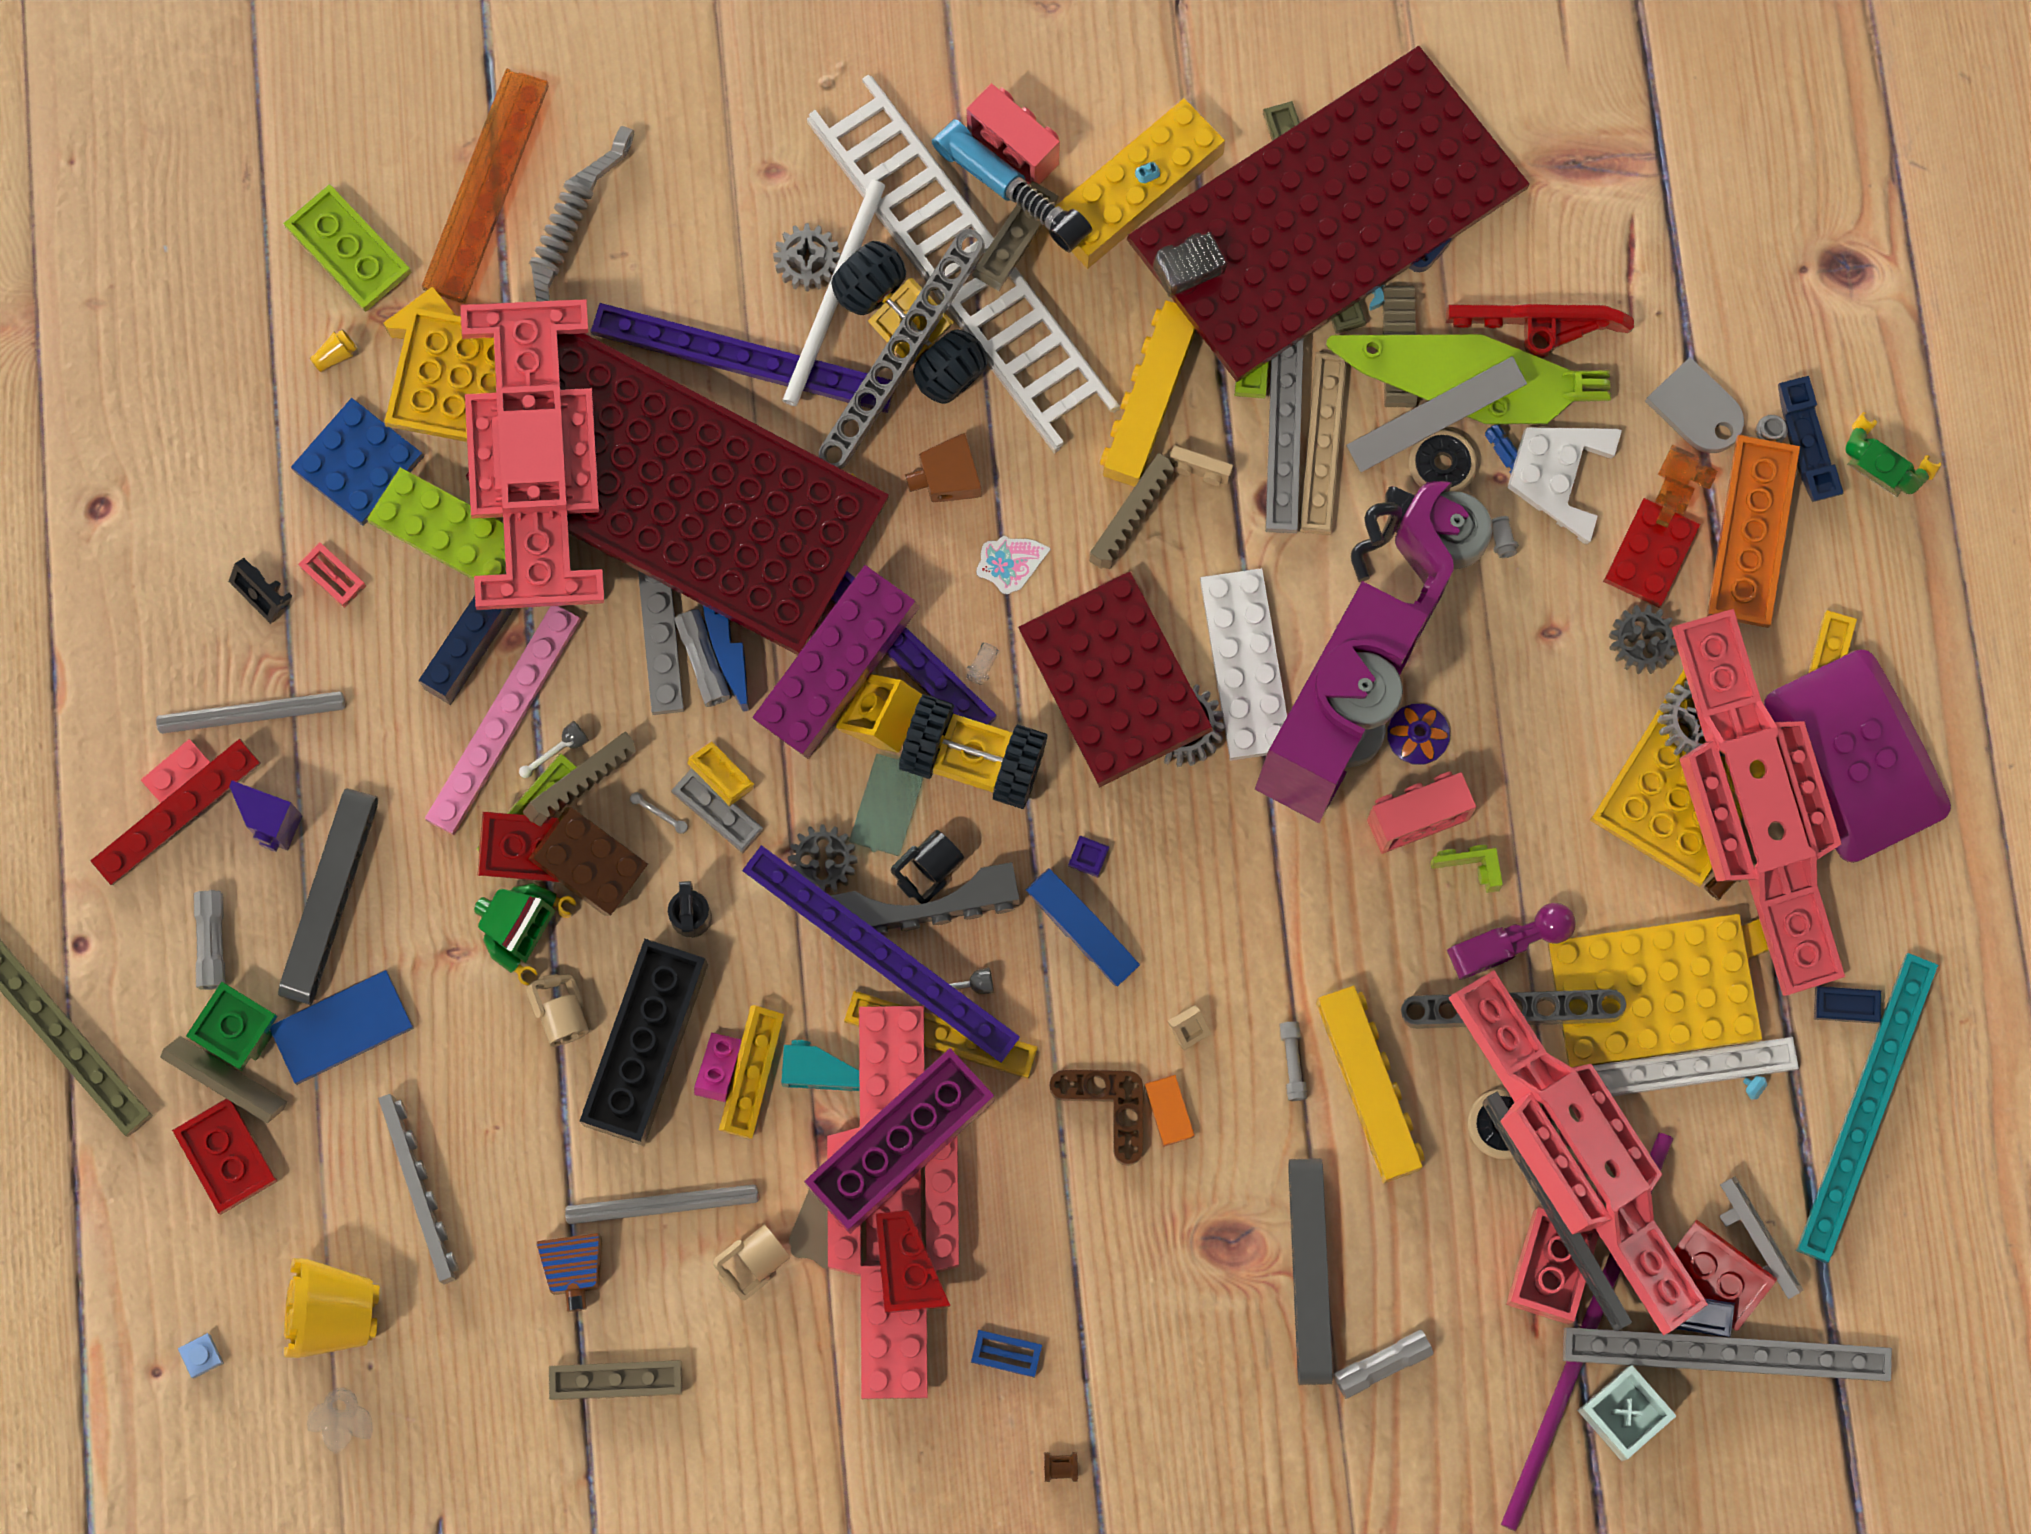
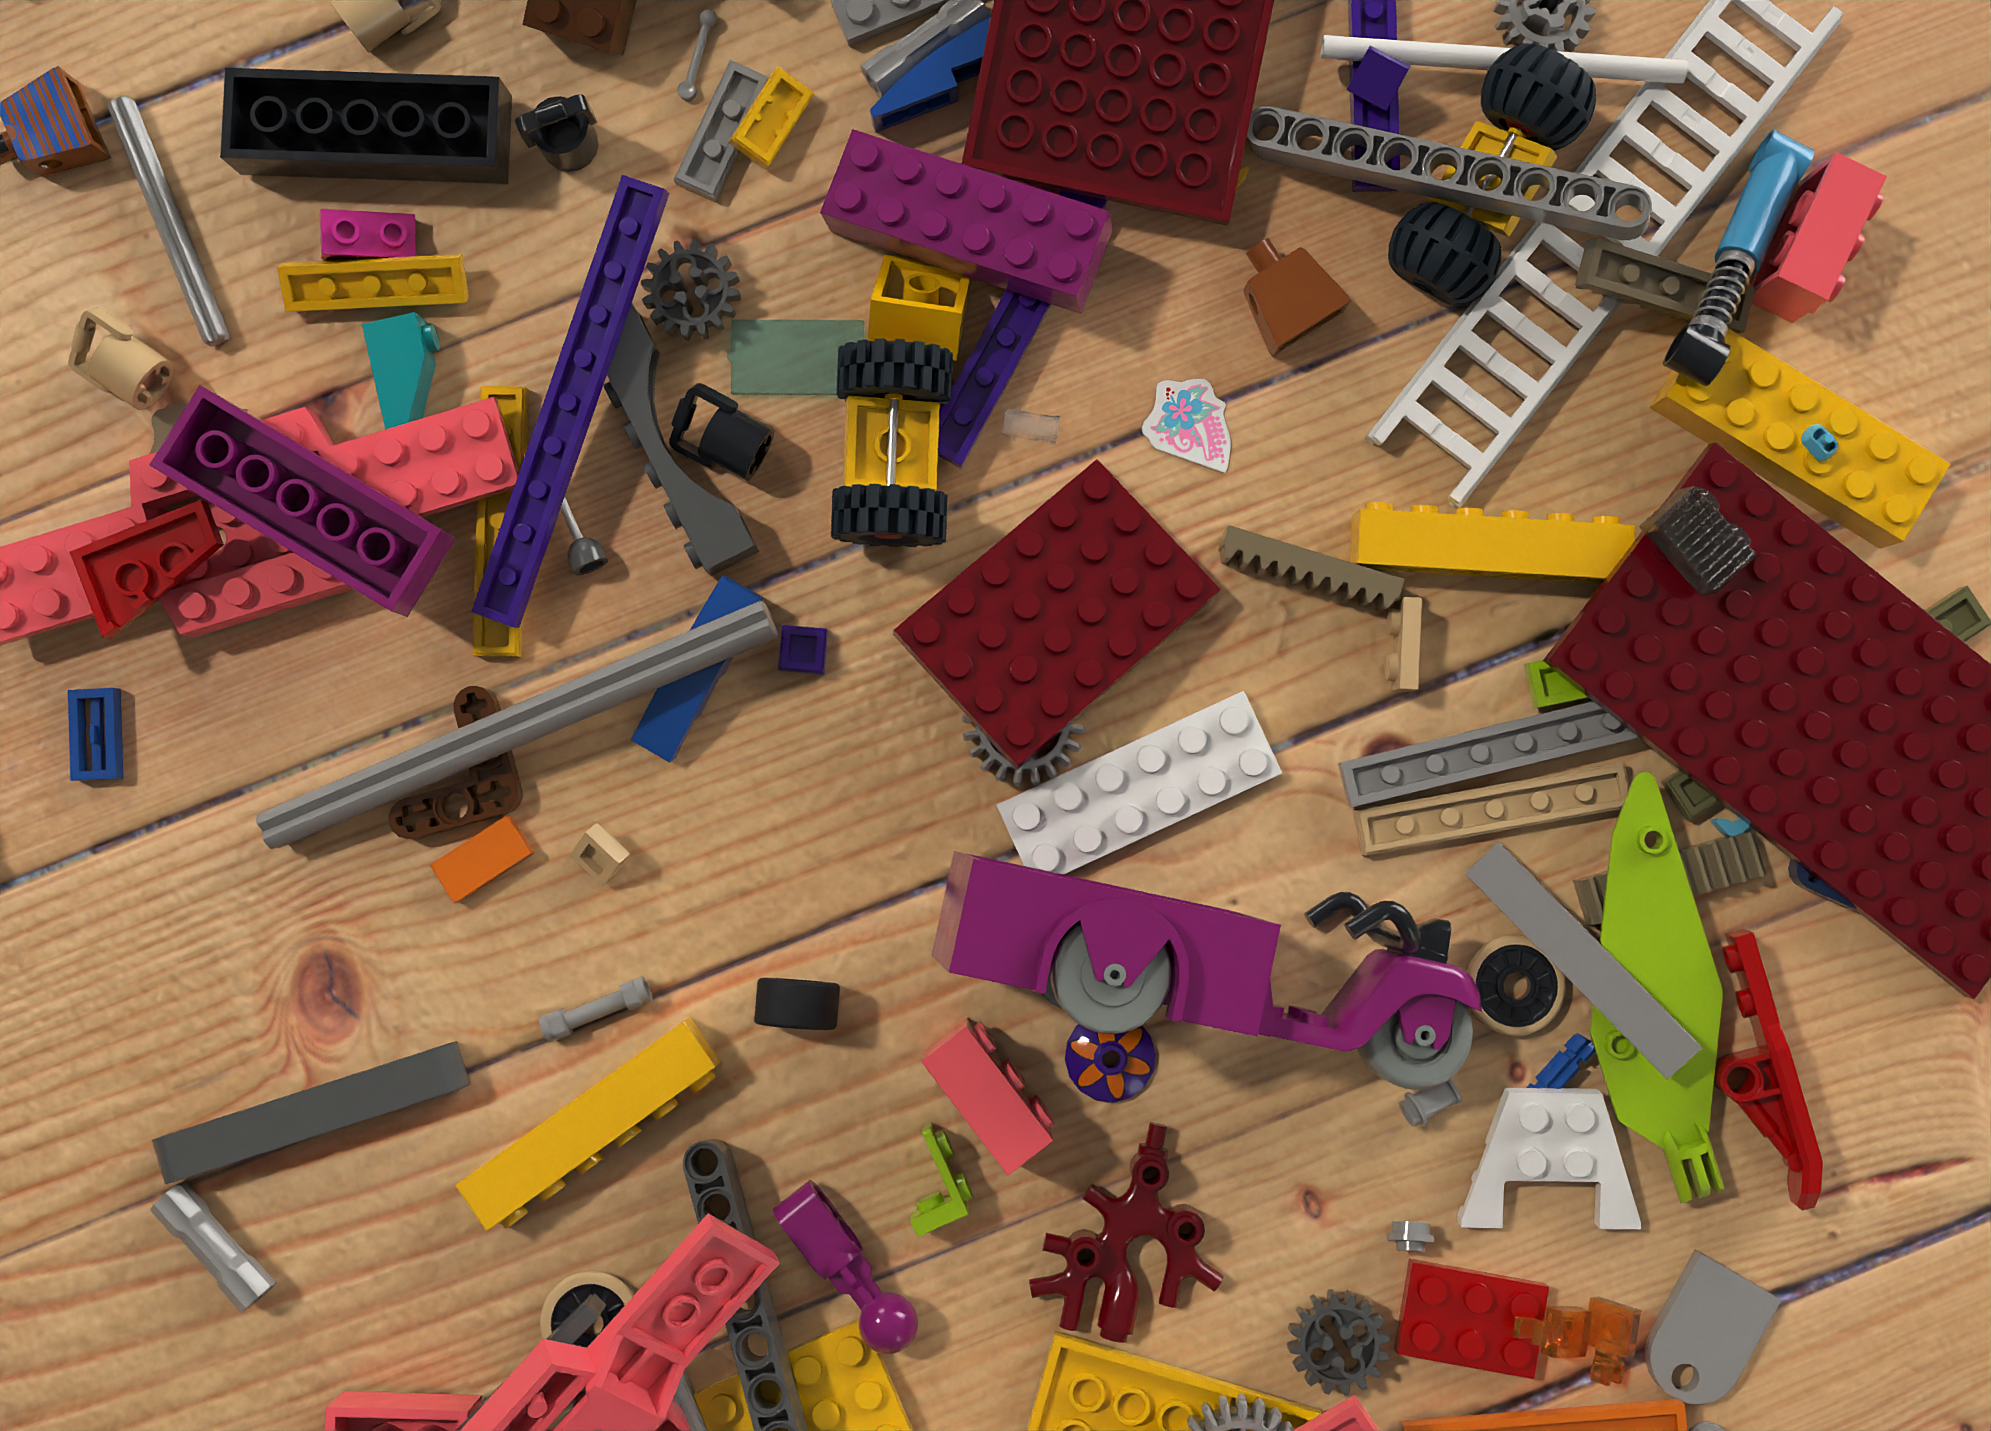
camera: 75 degrees right, 10 degrees up
(823, 373) = (1378, 78): none -> dark purple tile
(1088, 1054) = (517, 725): none -> light grey axle
(1326, 922) = (797, 1004): none -> black tyre
(1528, 752) = (1125, 1219): none -> dark red plant
(1587, 574) = (1410, 1235): none -> light grey plate

